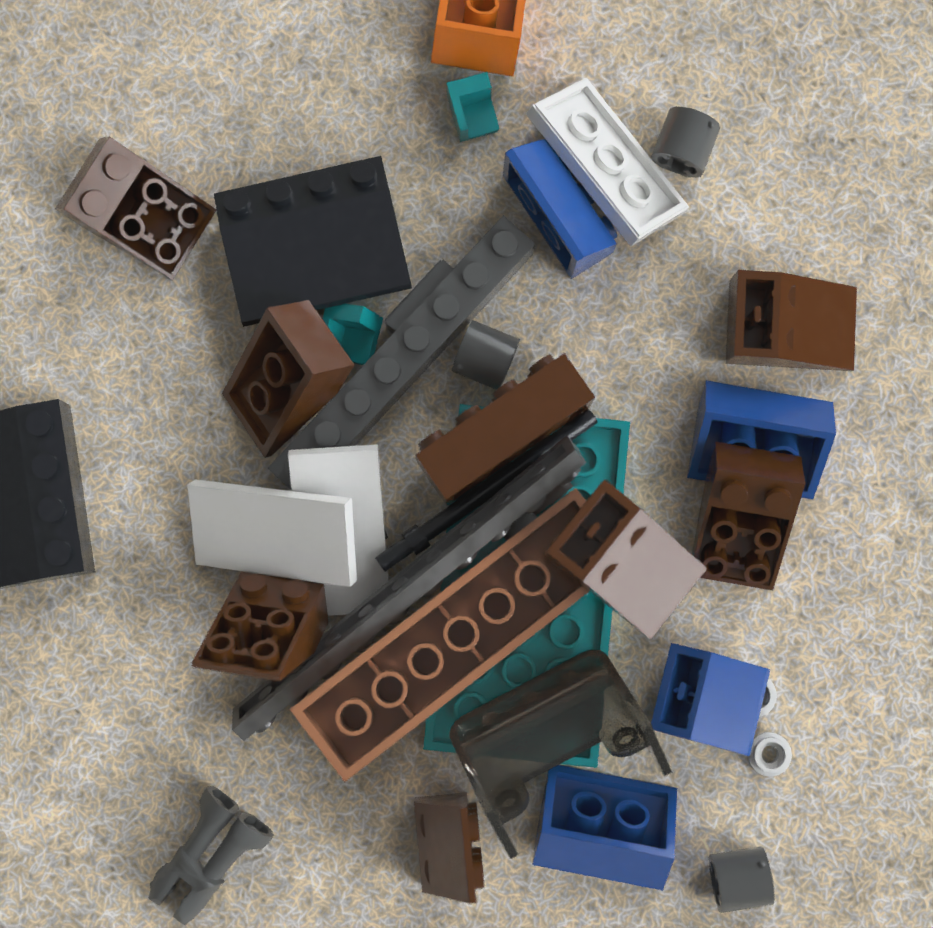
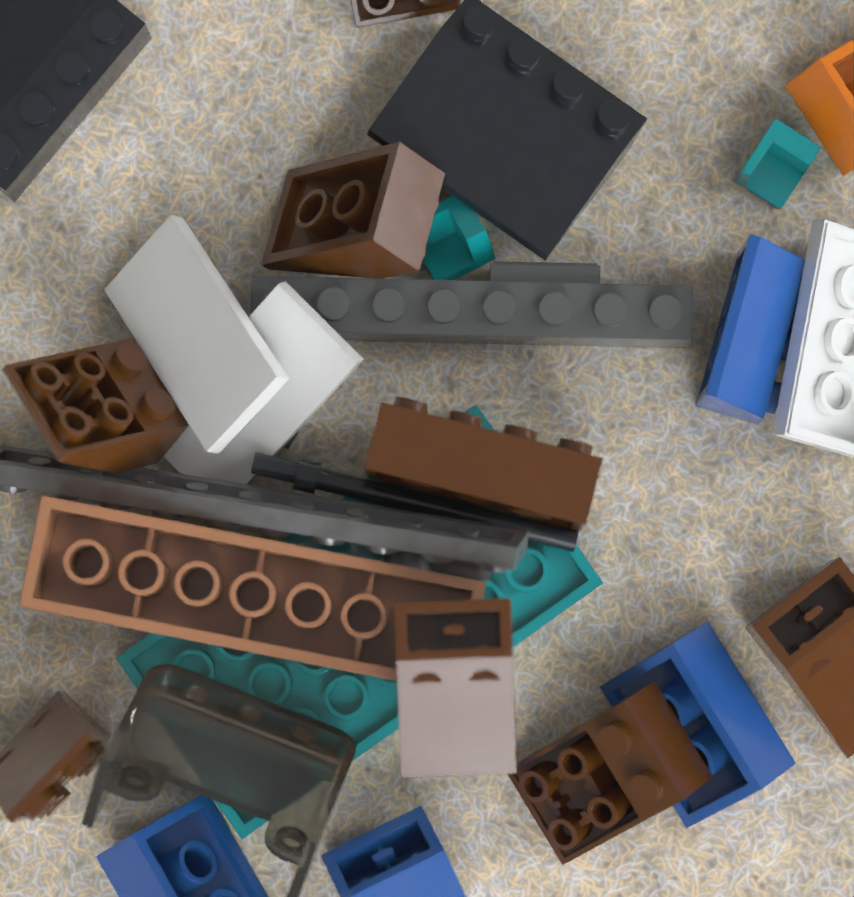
camera: 50 degrees right, 0 degrees up
(485, 355) = (544, 387): dark grey piece -> none

